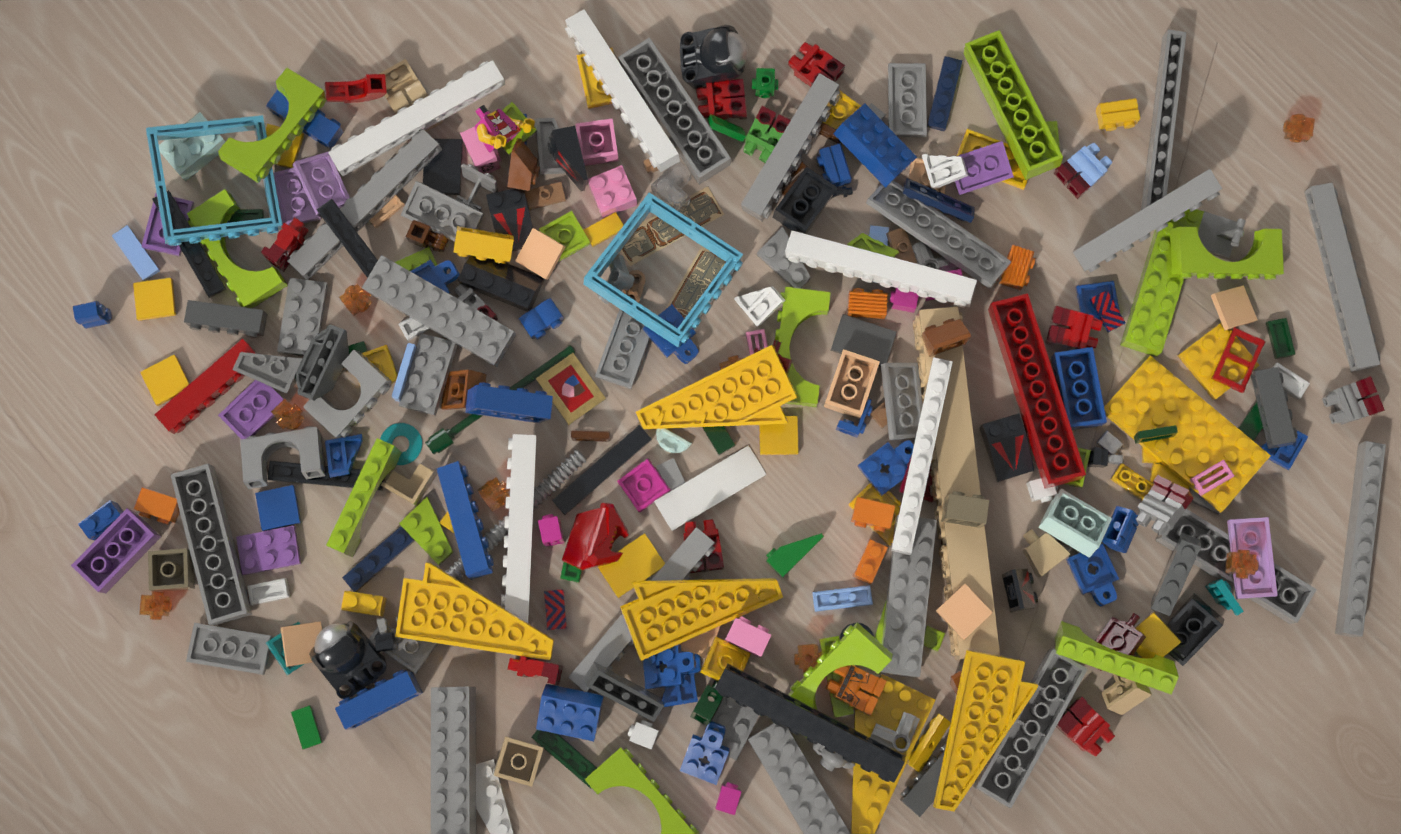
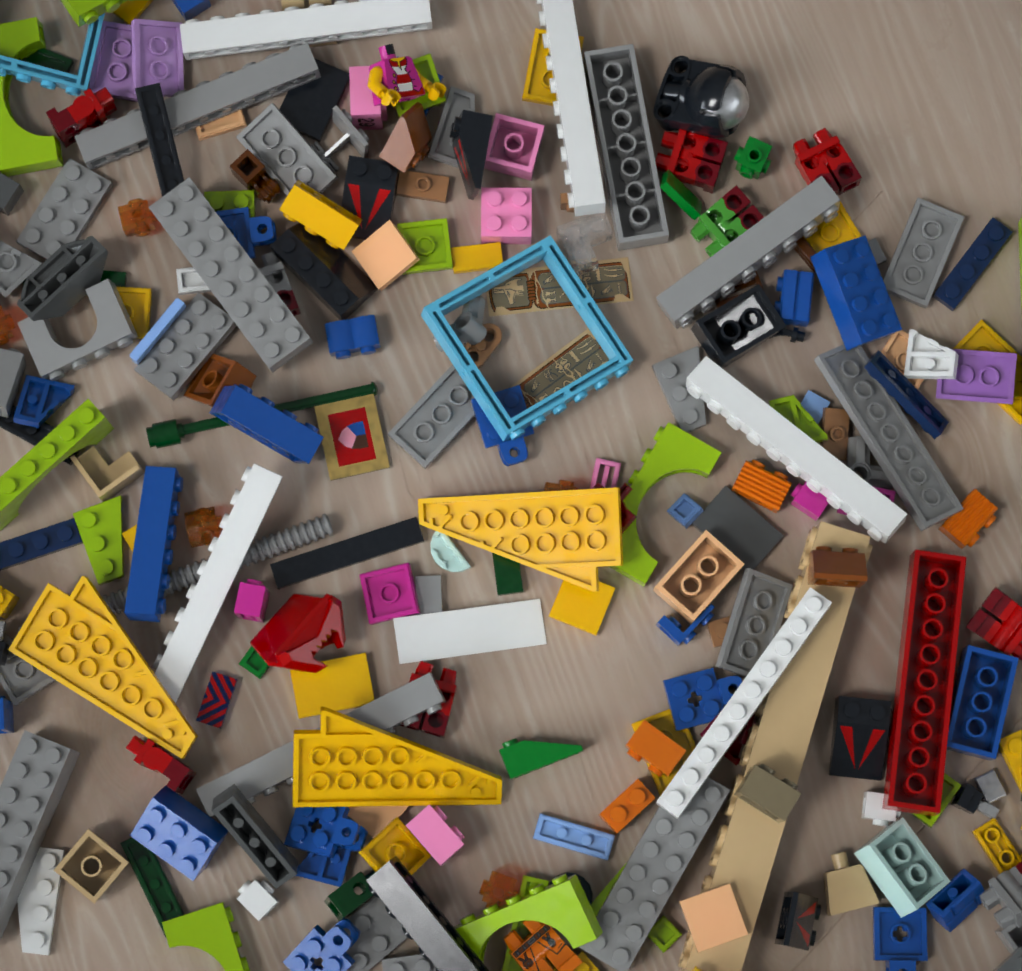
camera: 20 degrees right, 0 degrees up
(413, 437) = (135, 413): teal gear -> none
(598, 436) = (350, 505): reddish brown tile -> none
(760, 304) = (629, 430): white wing -> none
(822, 343) = (685, 510): none -> medium blue tile

